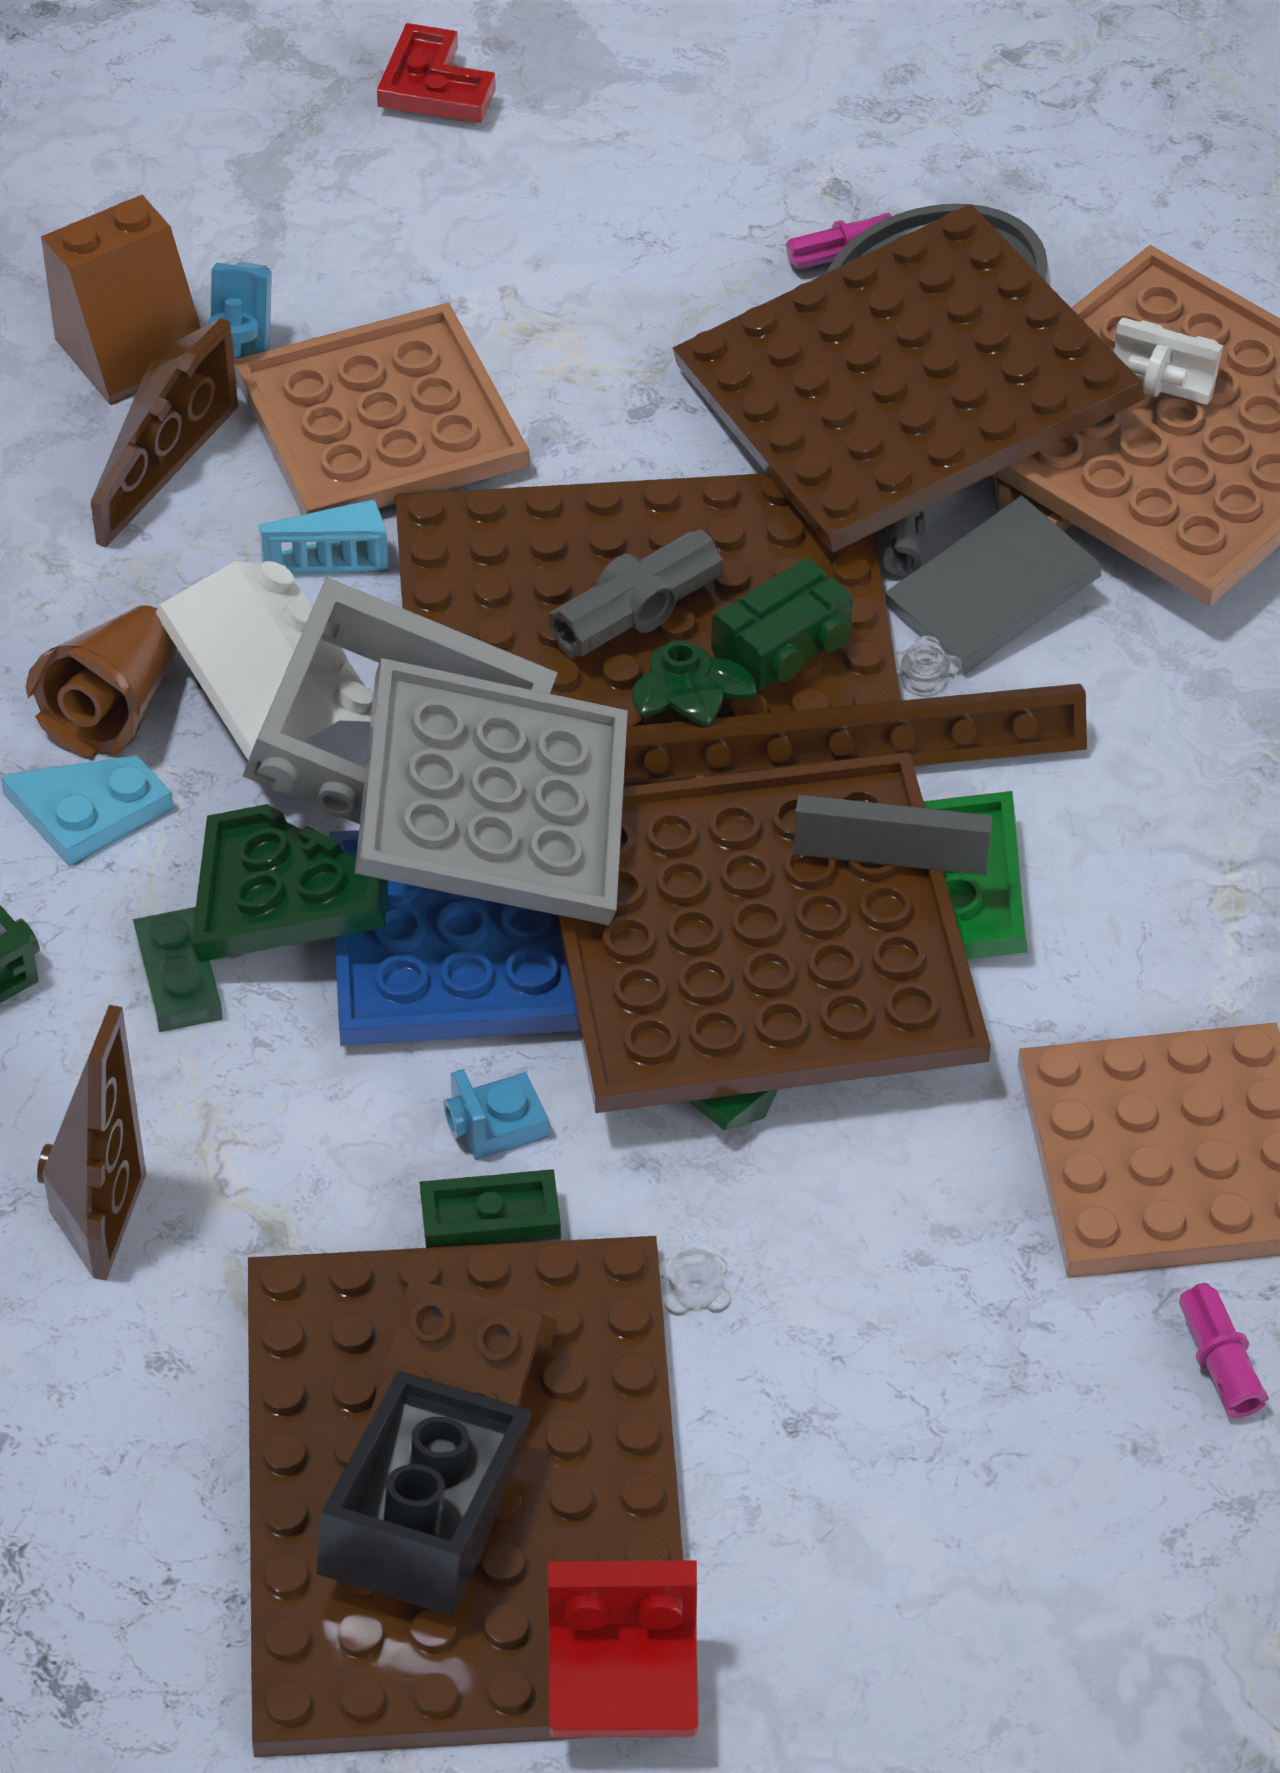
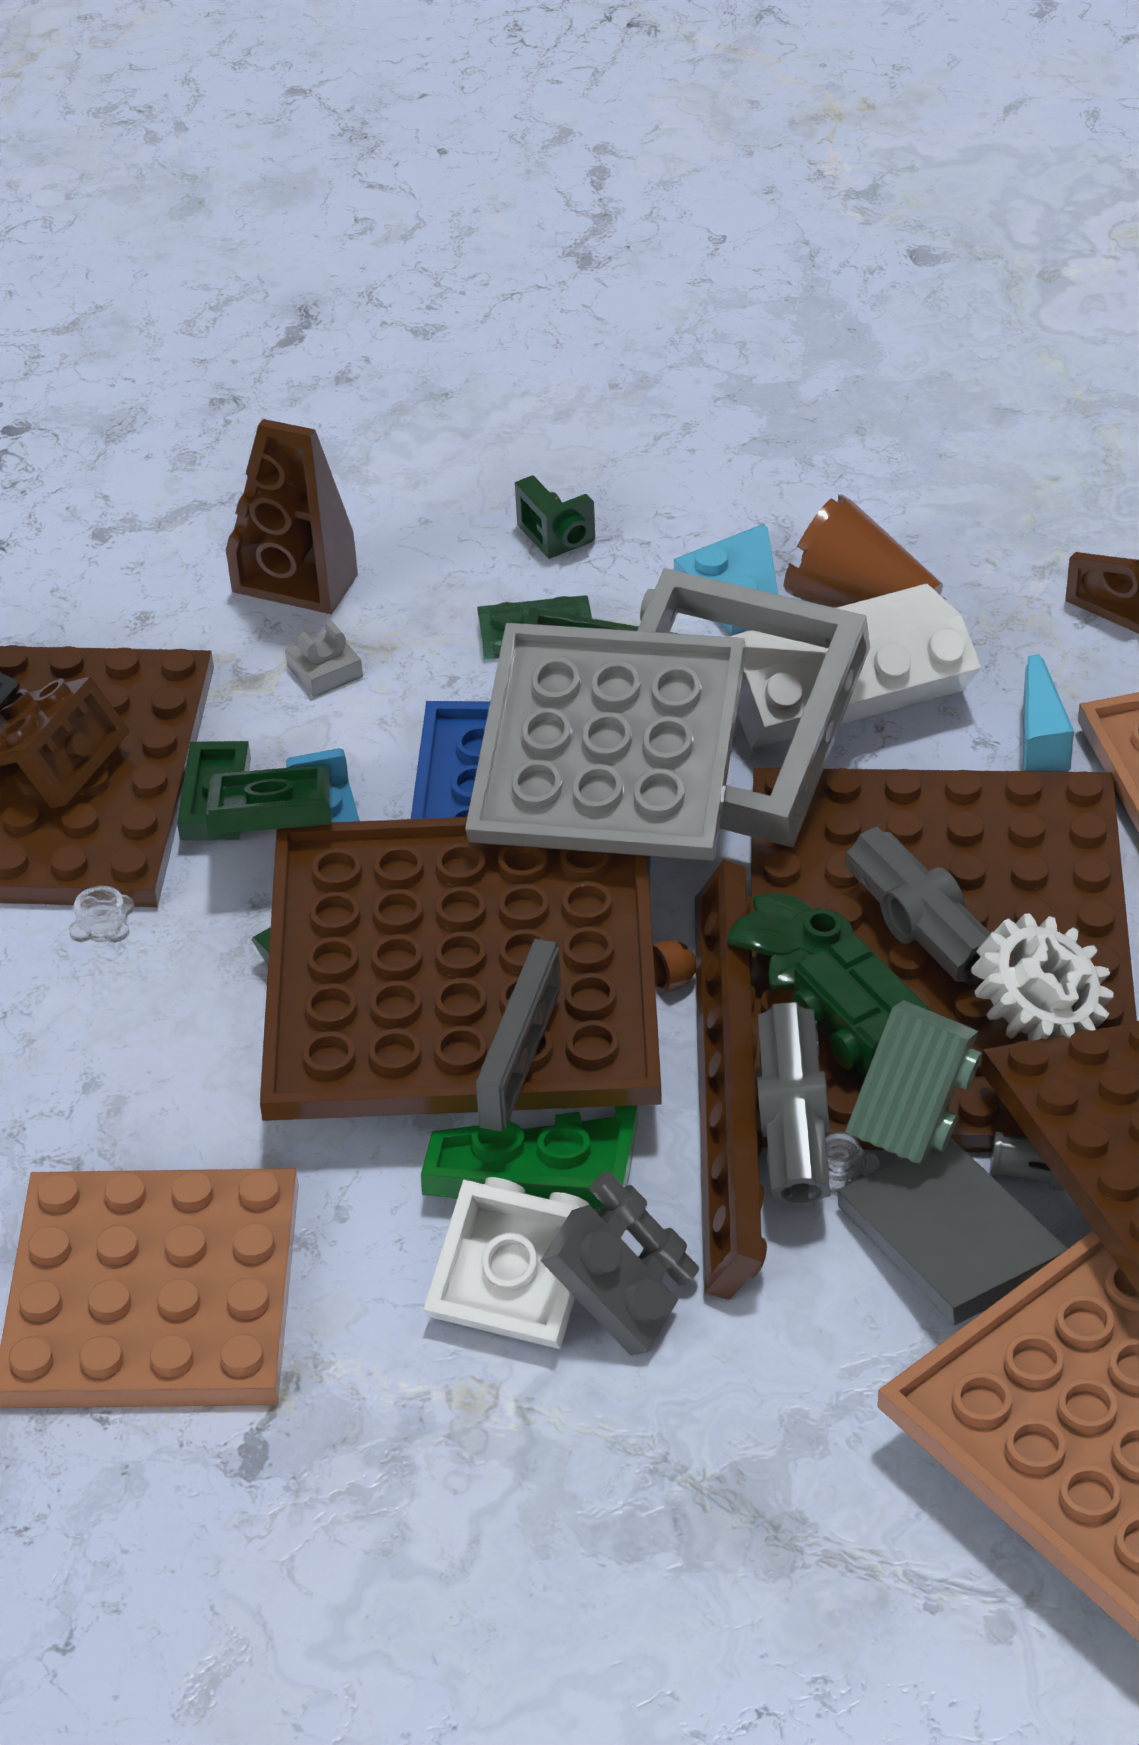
camera: 100 degrees right, 5 degrees down
(249, 1154) = (323, 660): none -> light grey tile
(554, 1112) = (269, 799): none -> dark green plate
(737, 501) = (1041, 980): none -> white gear
(887, 571) = (914, 1082): none -> sand green brick
(902, 666) = (793, 1105): none -> dark grey piece
(1101, 863) = (493, 1266): none -> white plate
(1119, 776) = (608, 1276): none -> dark grey plate

